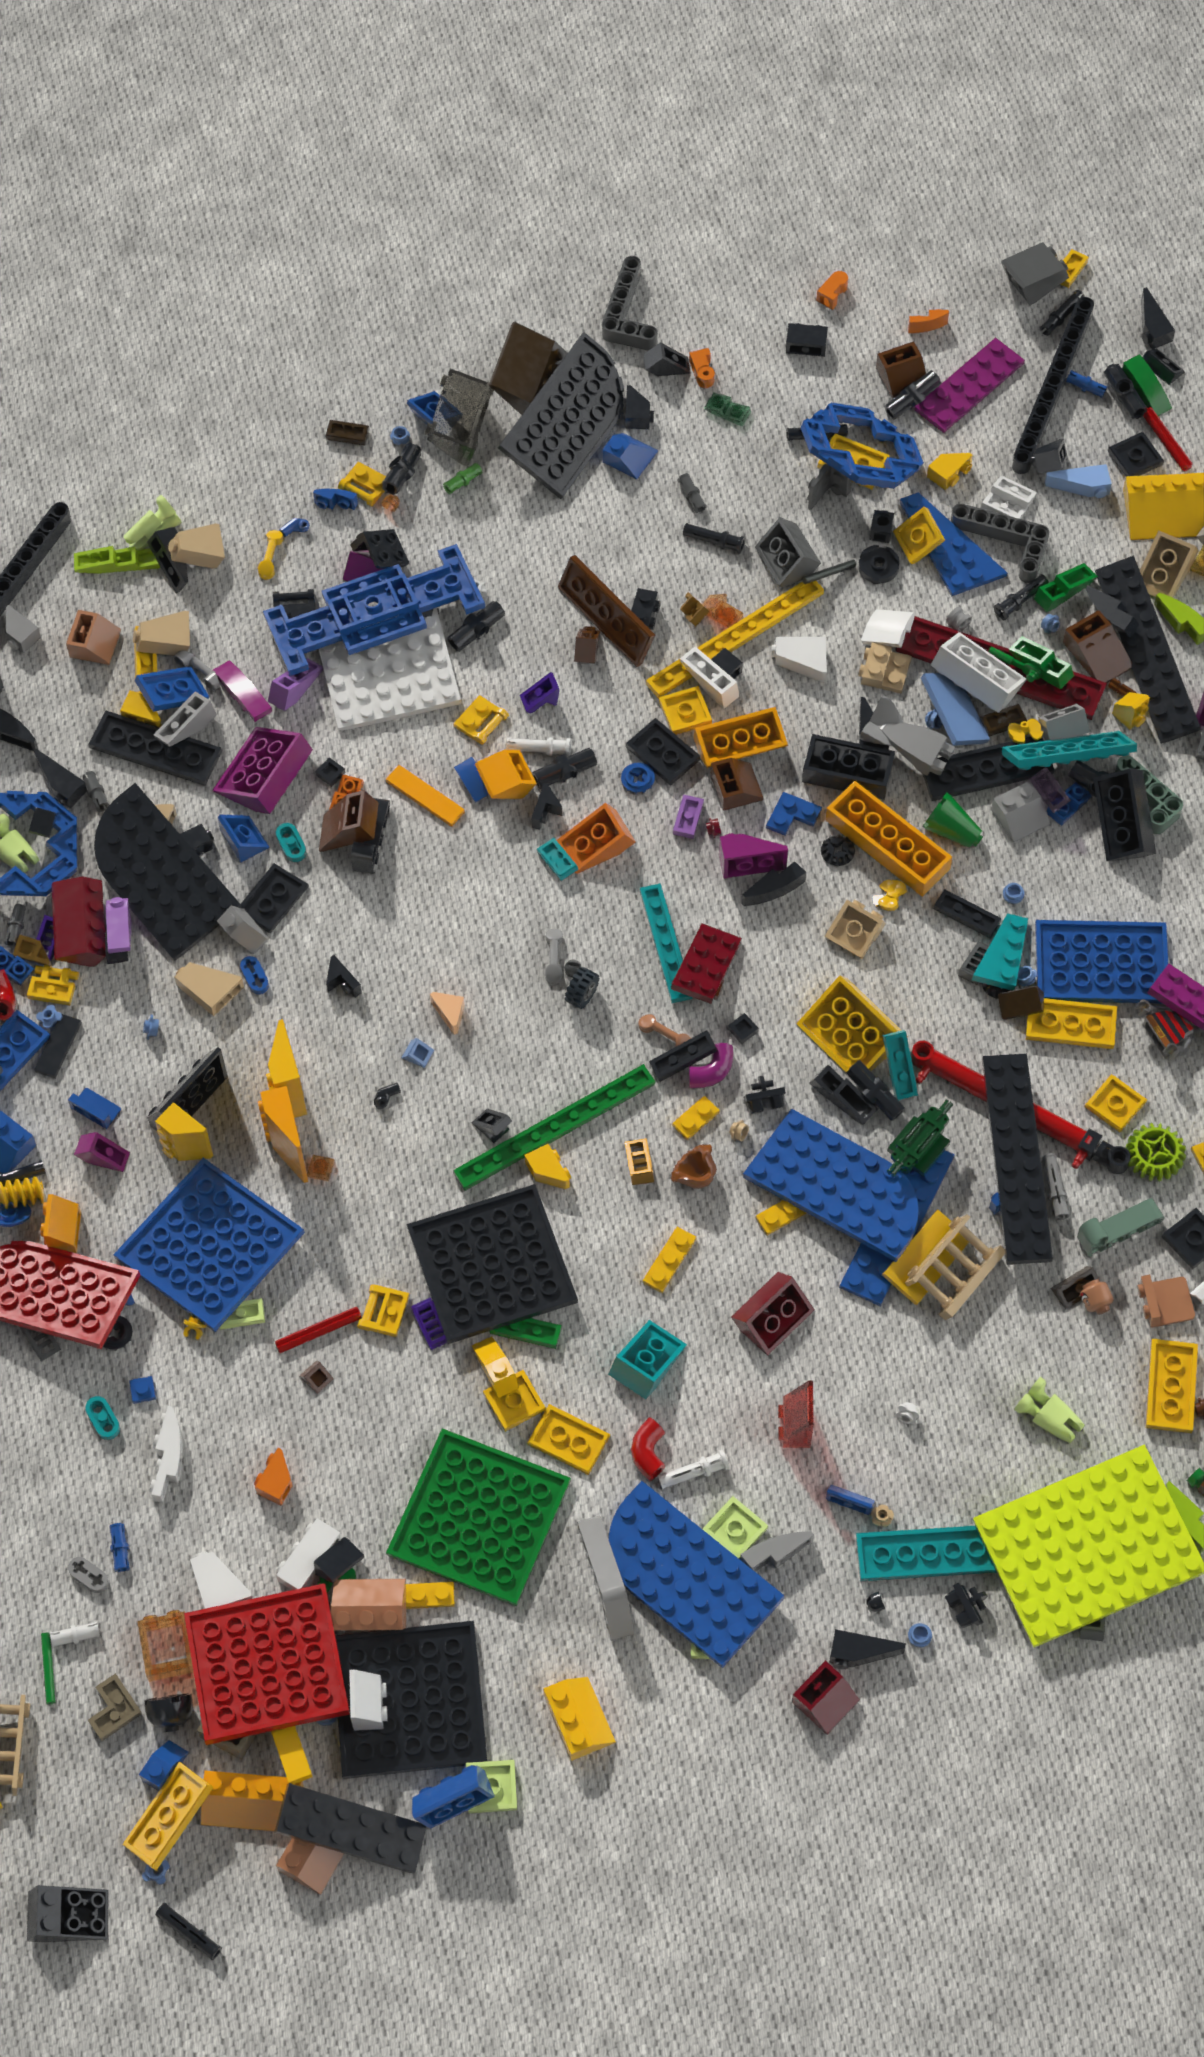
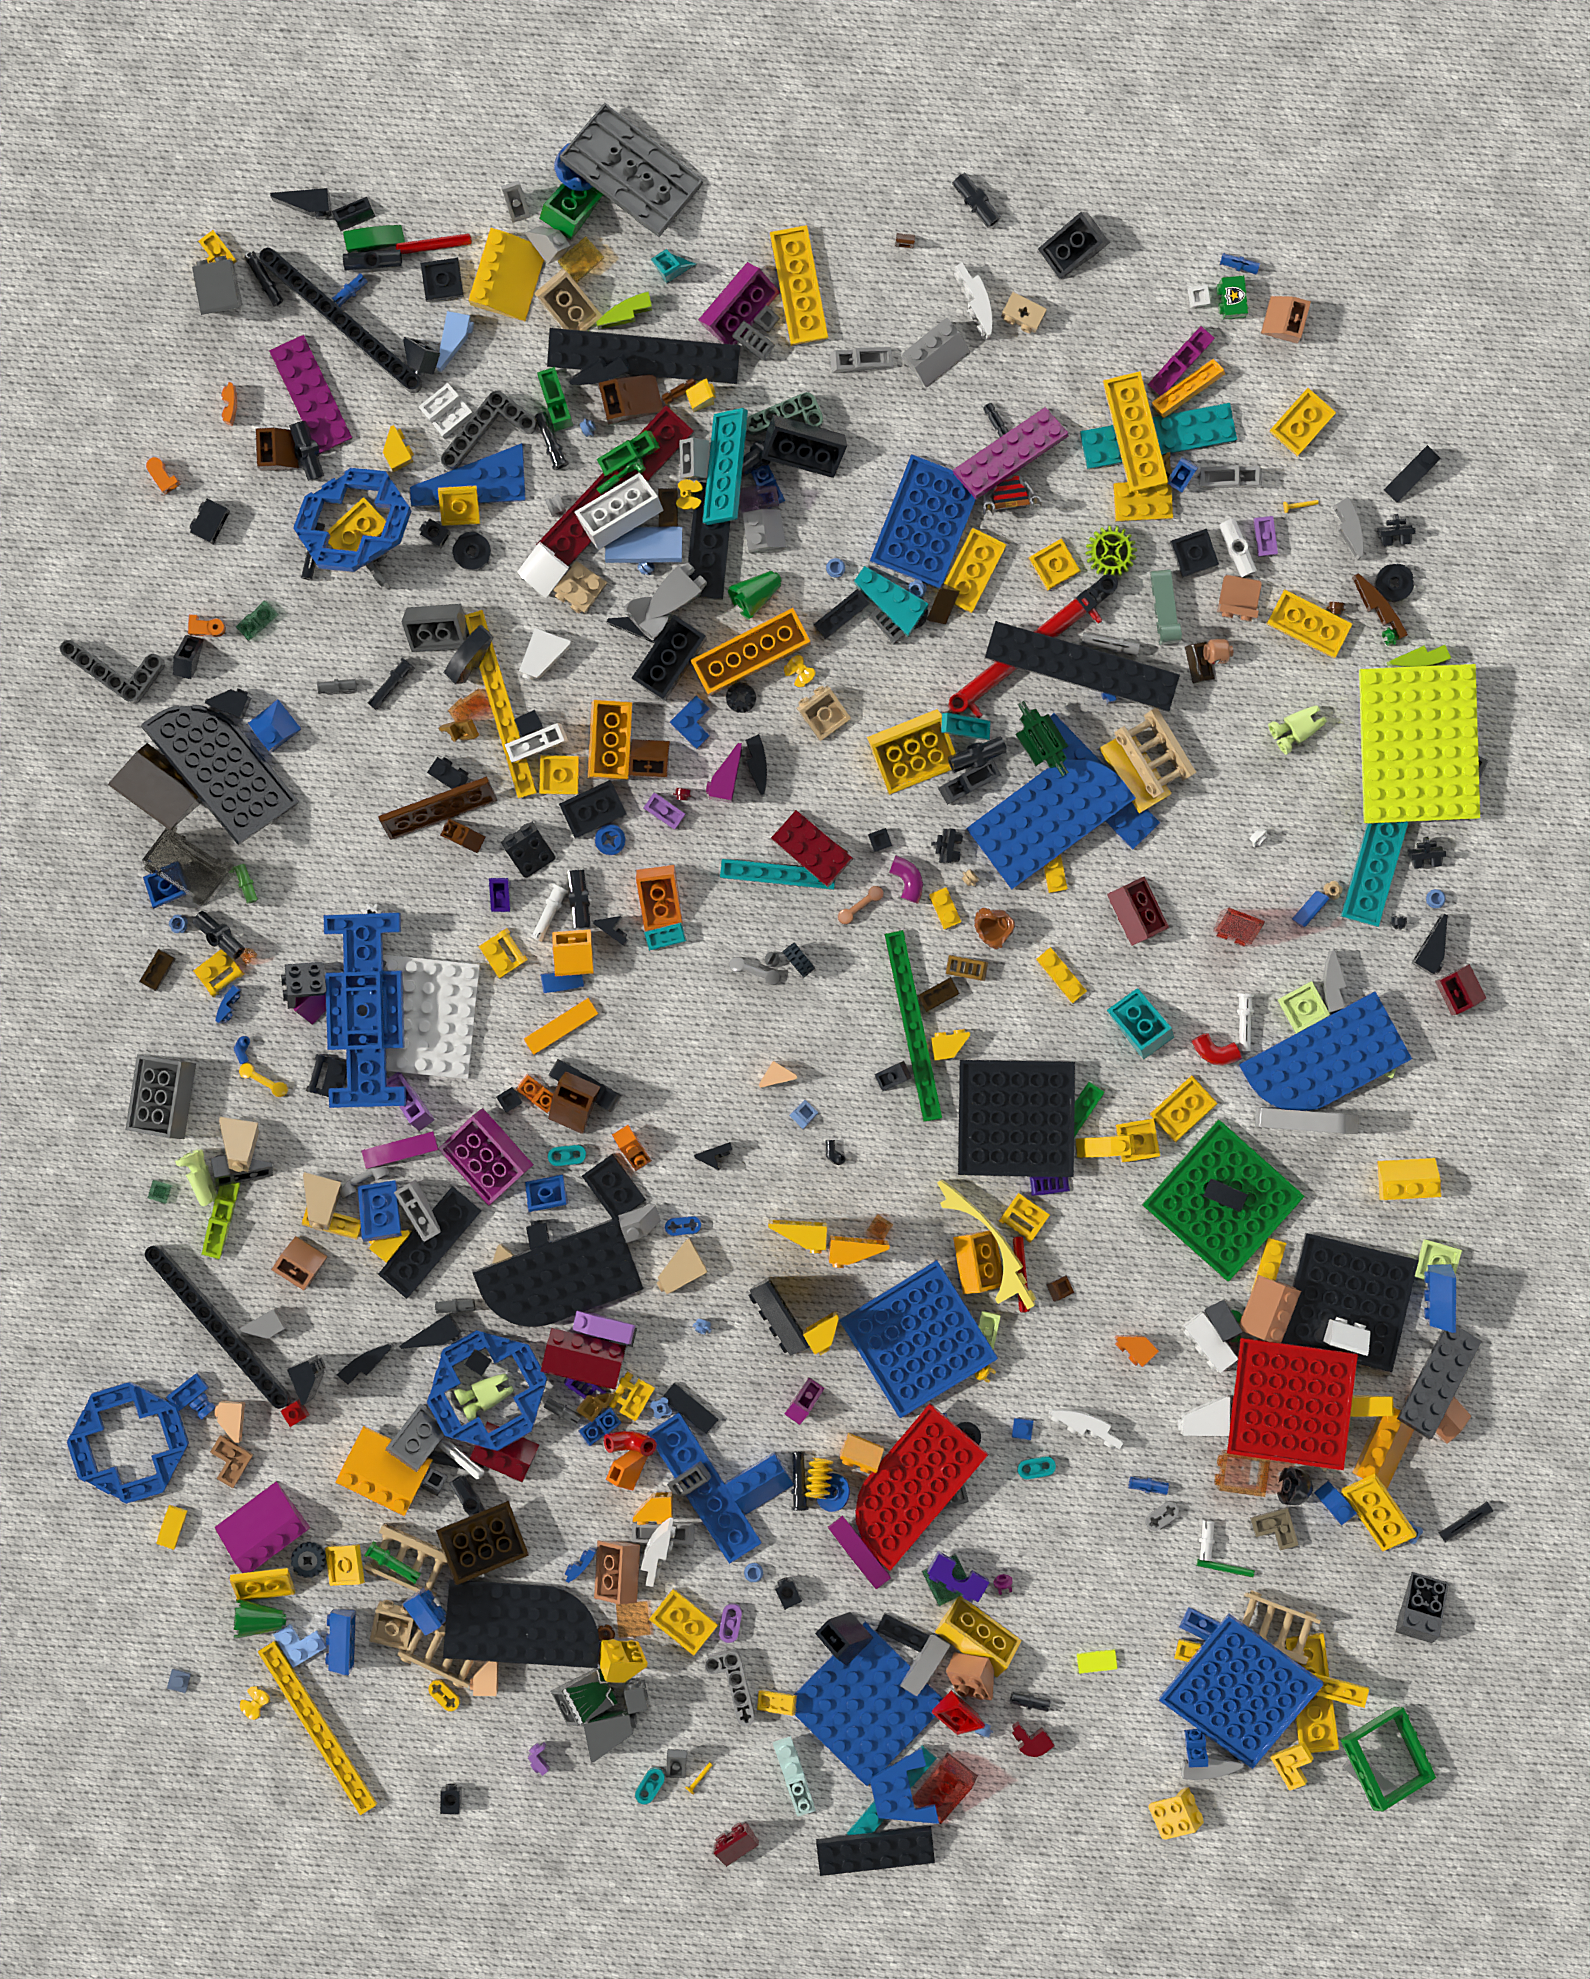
camera: 70 degrees left, 25 degrees up
(94, 1107) = (758, 1393): blue panel -> none
(125, 502) = (159, 1191): none -> clear green tile
(221, 475) = (160, 1097): none -> dark grey slope
(306, 1314) = (1012, 1281): none -> light yellow slope
(317, 1279) = (978, 1262): none -> light orange slope
(320, 898) = (631, 1147): none -> orange slope
(476, 625) = (409, 928): black piece -> none
(485, 1511) = (1225, 1195): none -> black slope
(595, 707) = (528, 849): none -> black bracket
(599, 1141) = (938, 994): none -> dark brown plate
(683, 1055) = (890, 899): black plate -> none
(771, 588) = (468, 655): none -> black slope
(828, 571) = (465, 598): pearl dark grey bar -> none

